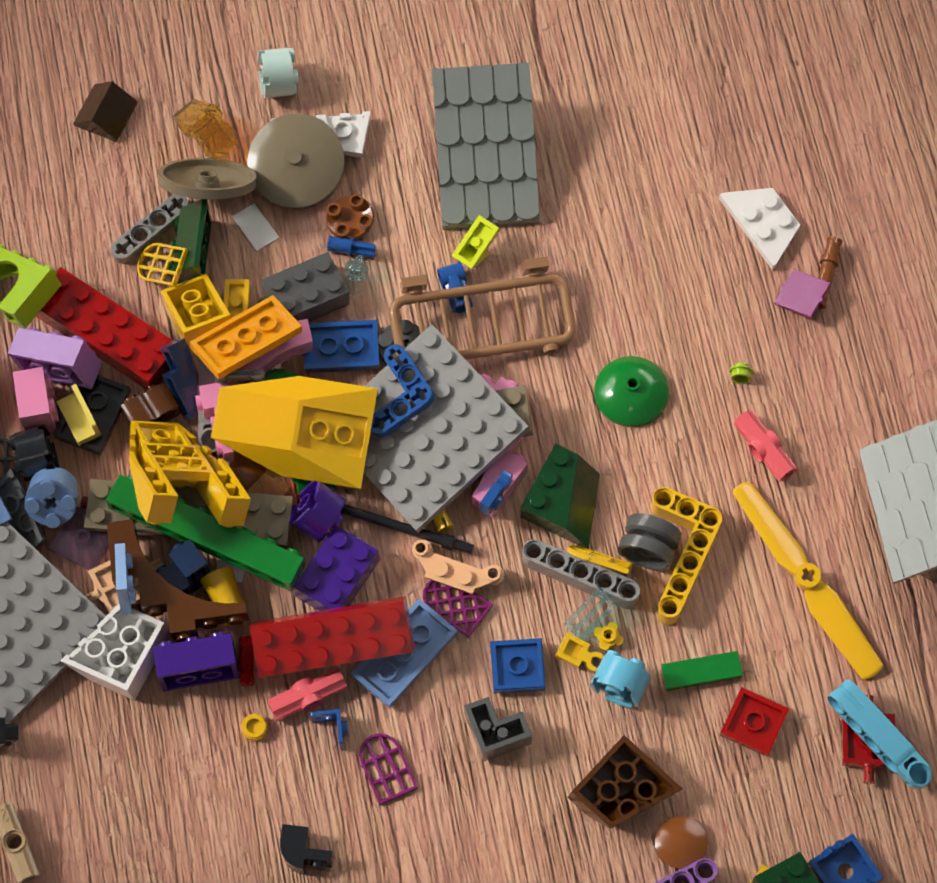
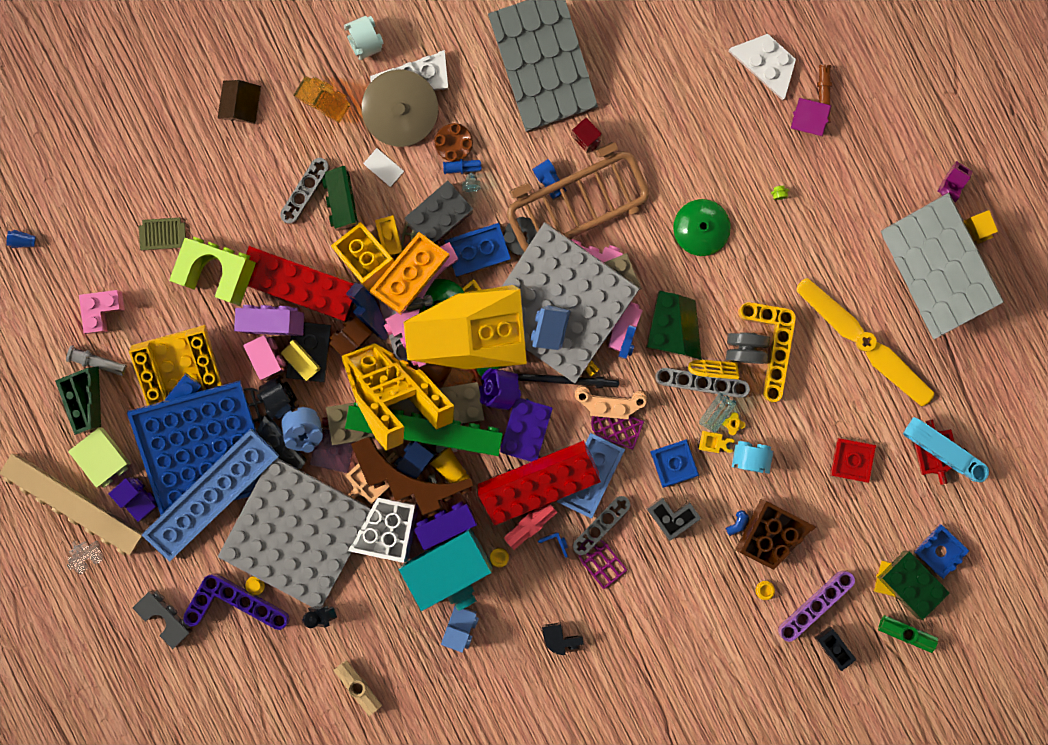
camera: 15 degrees left, 20 degrees up
(124, 583) = (381, 491): light blue plate -> none
(164, 271) = (329, 217): yellow window -> none
(172, 801) = (458, 629): none -> medium blue brick
(179, 708) = (447, 571): none -> teal brick
(207, 178) = (338, 145): dark tan dish -> none
(246, 661) = (479, 511): red axle -> none
(397, 716) = (604, 528): none -> dark grey beam
(402, 445) = (550, 327): none -> medium blue slope
(411, 391) = (543, 279): blue beam -> none
(475, 243) = (556, 141): neon yellow slope -> none
(514, 242) = (586, 135): none -> dark red brick
(583, 766) = (741, 522): none -> blue arm
(594, 861) = (765, 590): none -> yellow plate
(680, 842) = (822, 561): dark orange dish -> none
(701, 671) = (806, 431): green tile -> none
(765, 445) = (811, 247): coral piece -> none

